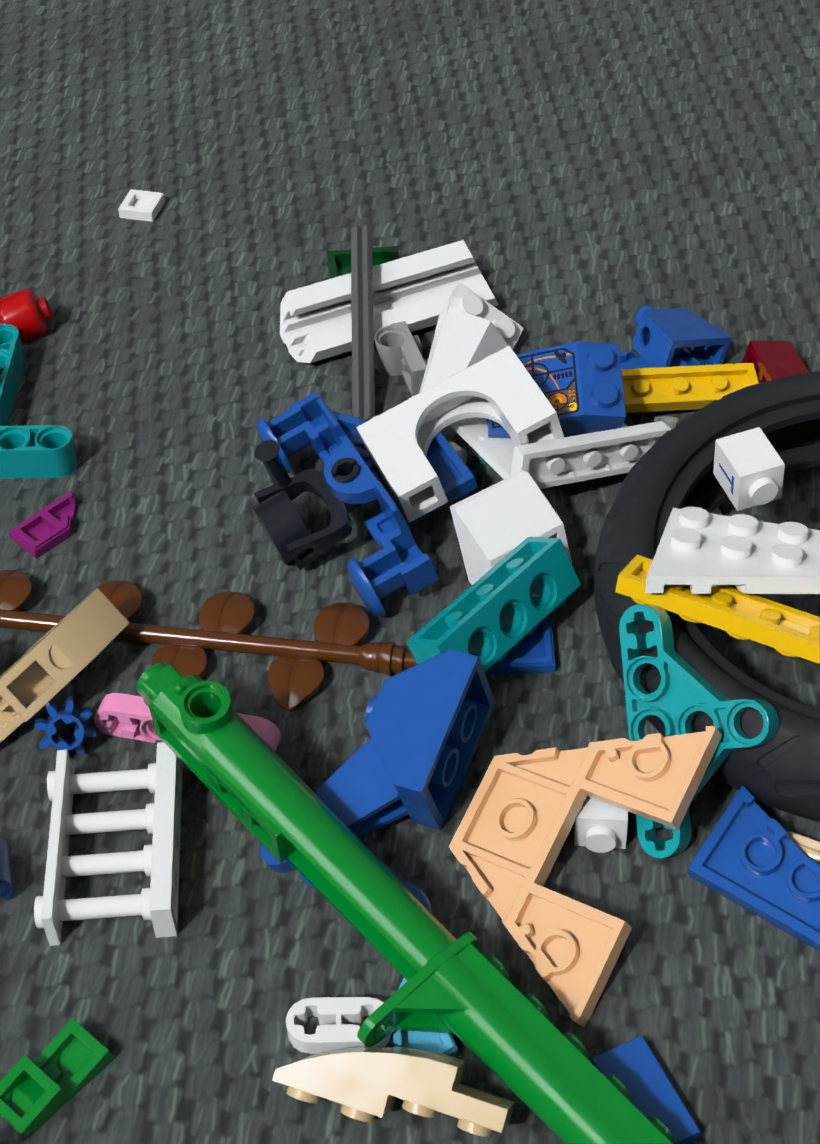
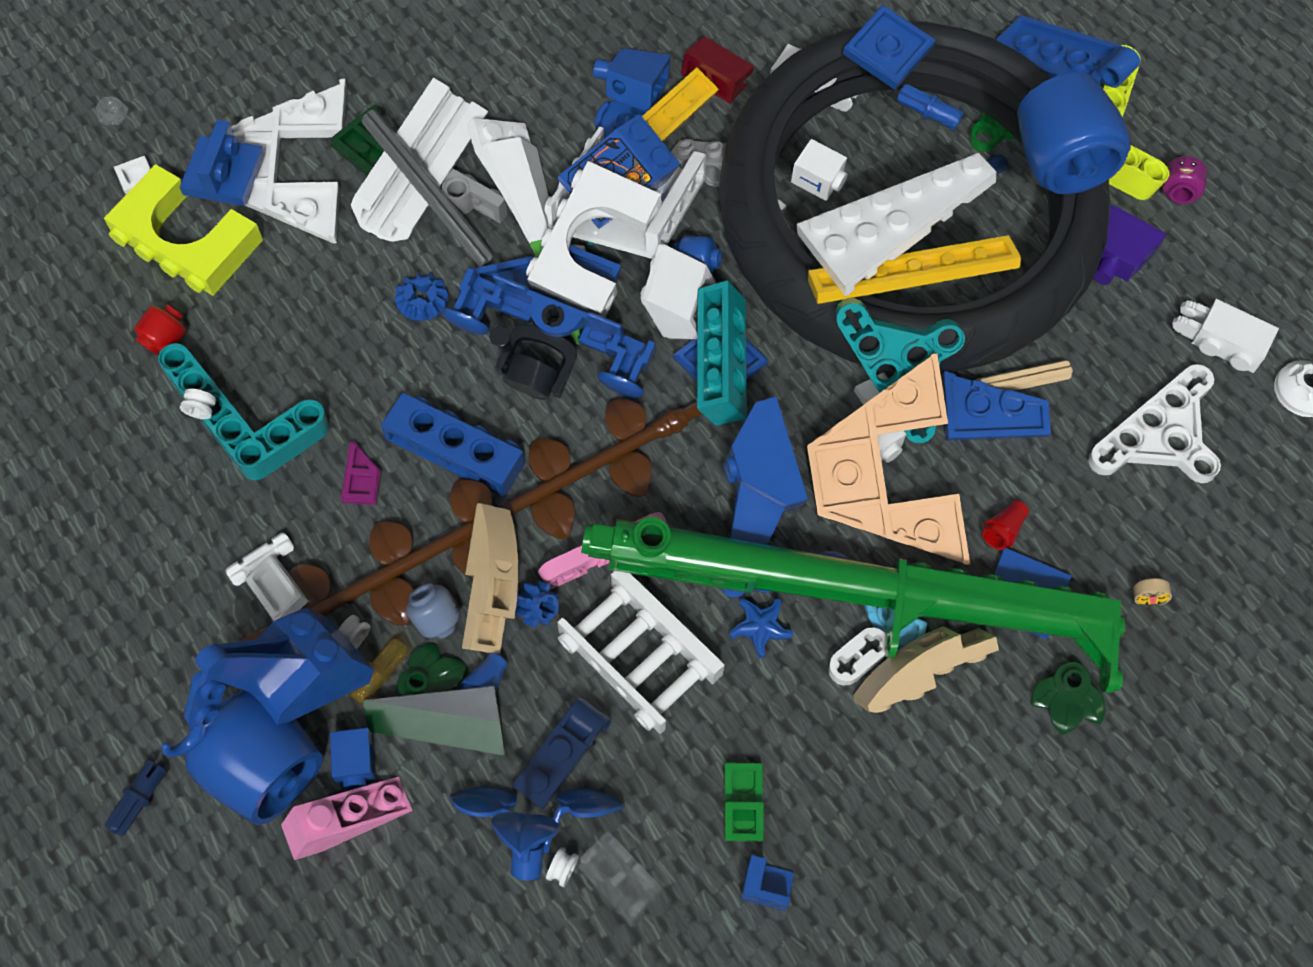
camera: 45 degrees left, 20 degrees up
(124, 288) = (201, 263): none -> neon yellow arch
(155, 547) = (412, 413): none -> blue brick
(176, 151) = (108, 105): none -> clear plate
(206, 220) = (222, 167): none -> blue bracket
(249, 231) = (300, 204): none -> white wing
(259, 407) = (417, 308): none -> blue gear
(264, 912) = (760, 626): none -> blue animal
(581, 521) = (701, 249): none -> blue head
(667, 1011) = (1005, 526): none -> red cone

